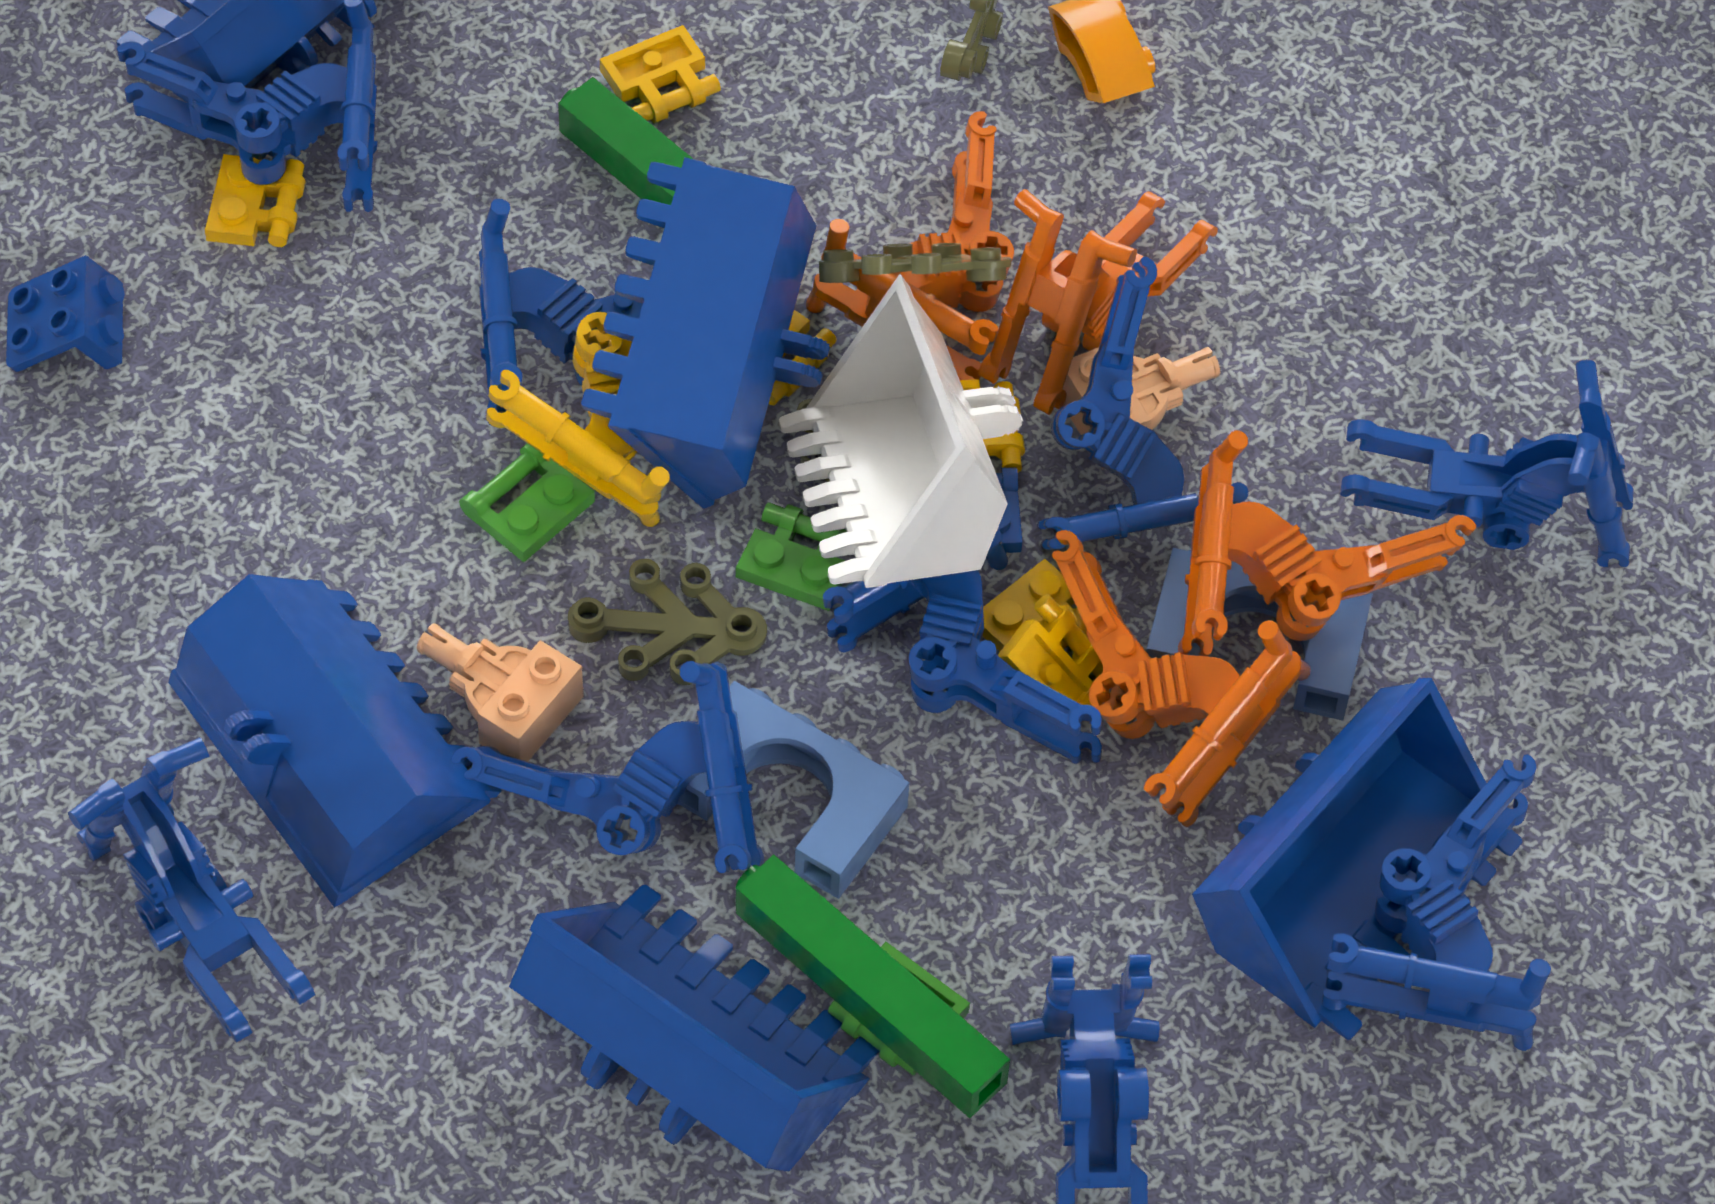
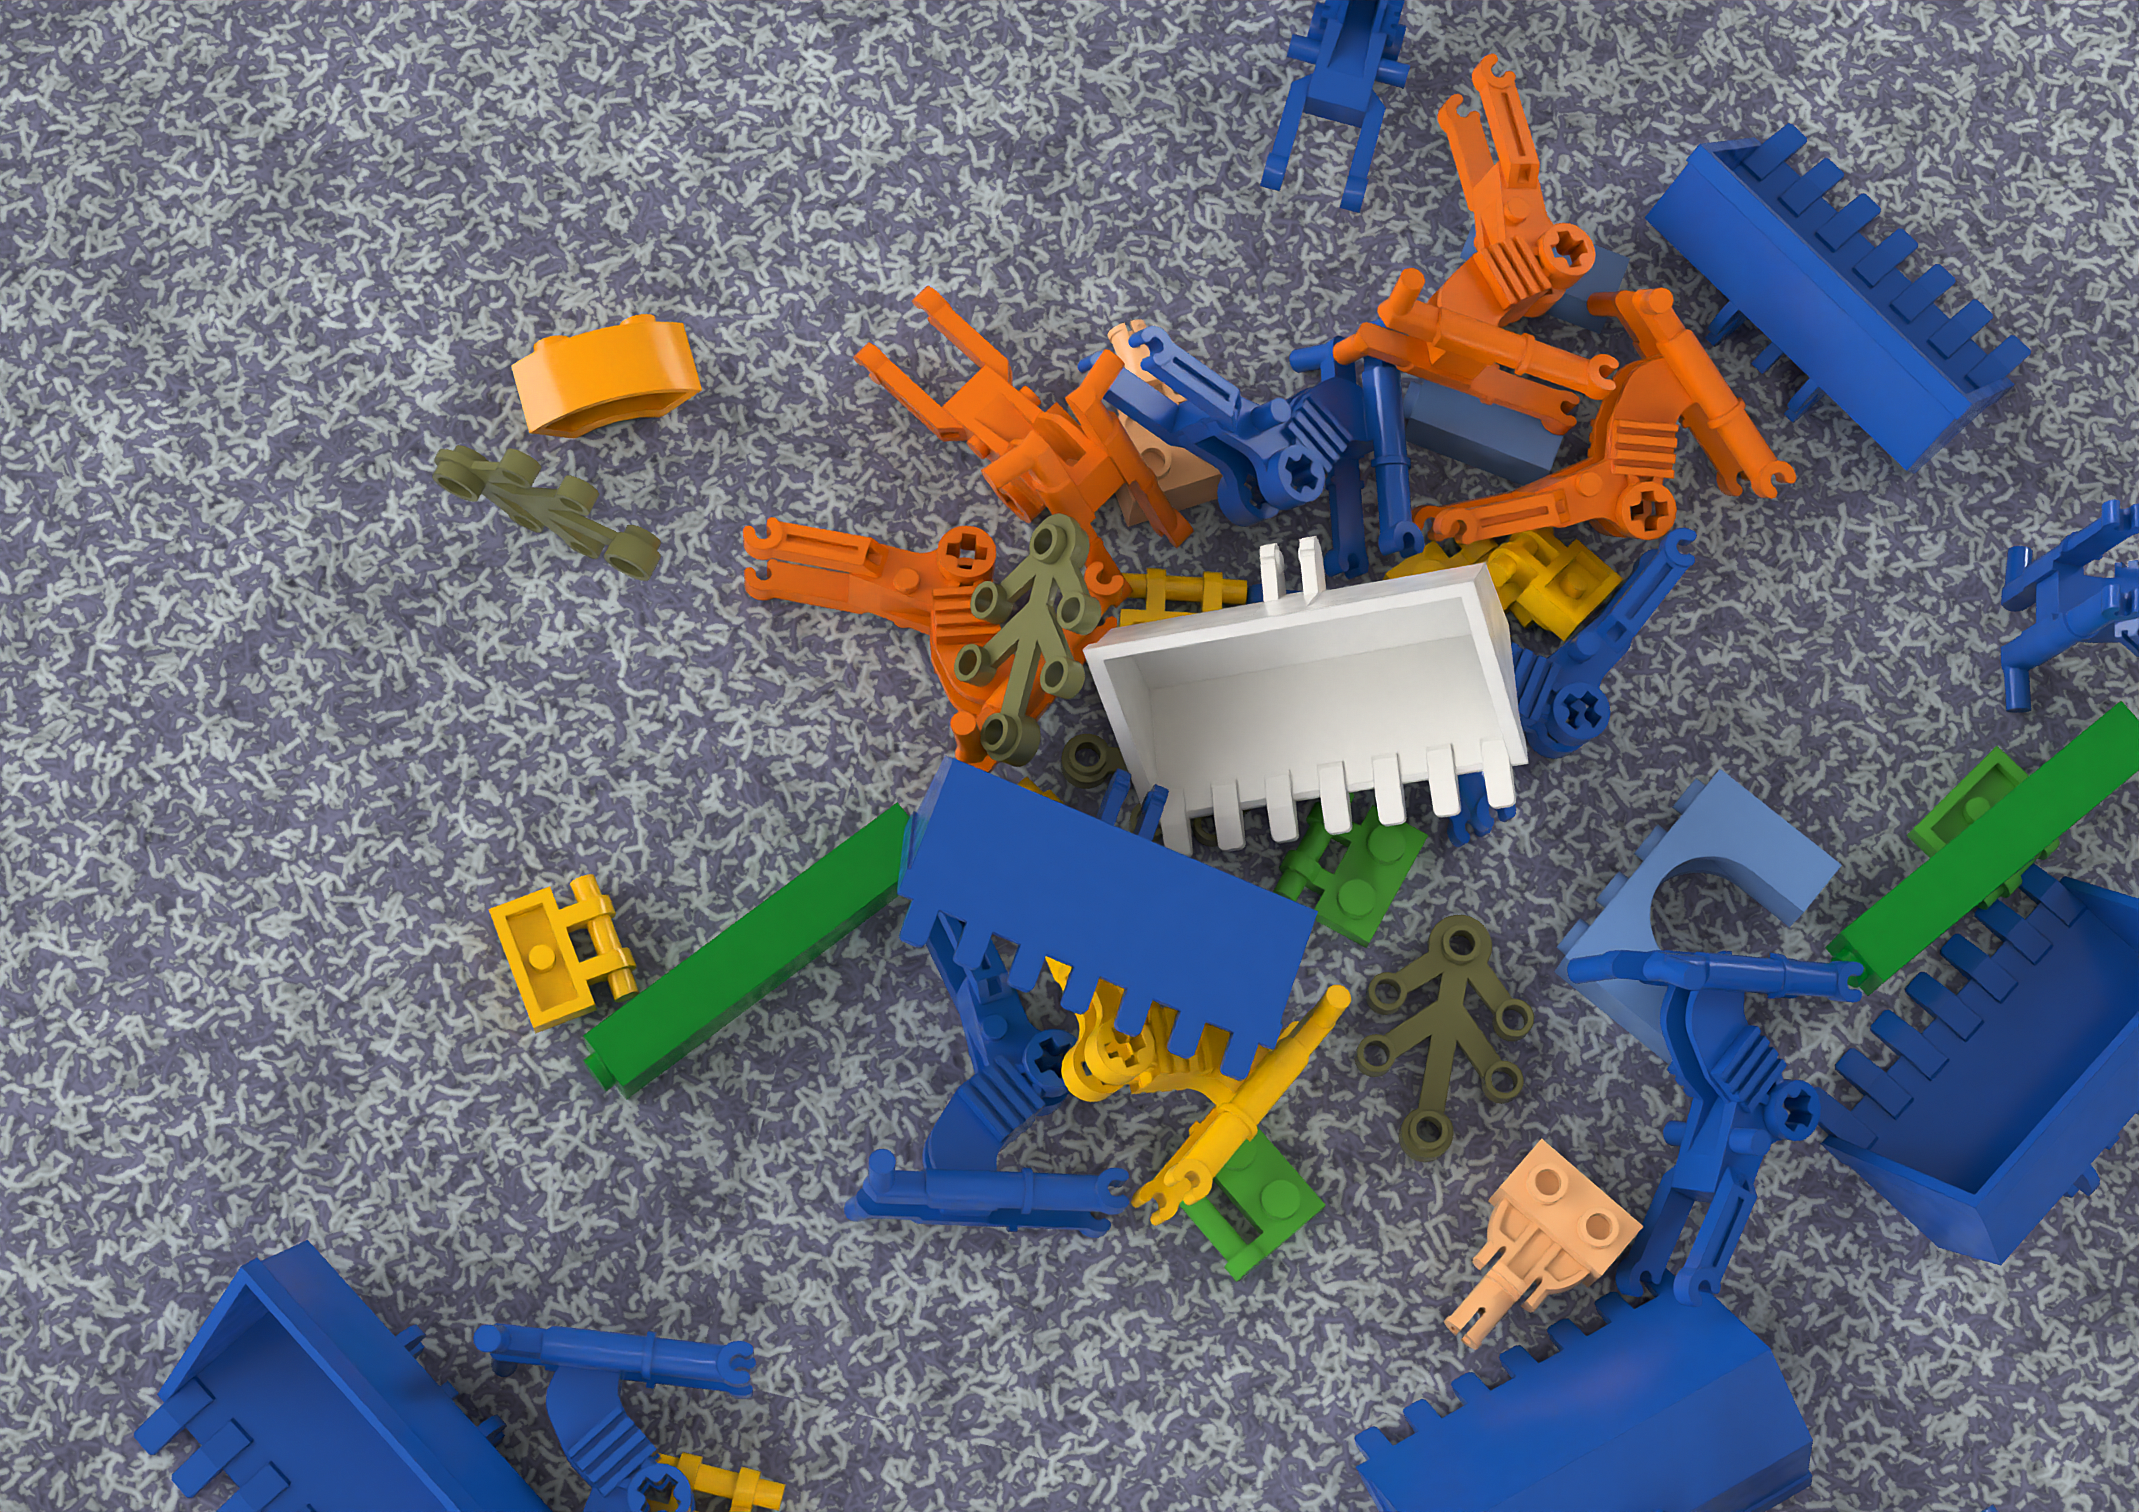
camera: 90 degrees left, 15 degrees up
(1444, 930) = (1931, 223): blue piece -> none

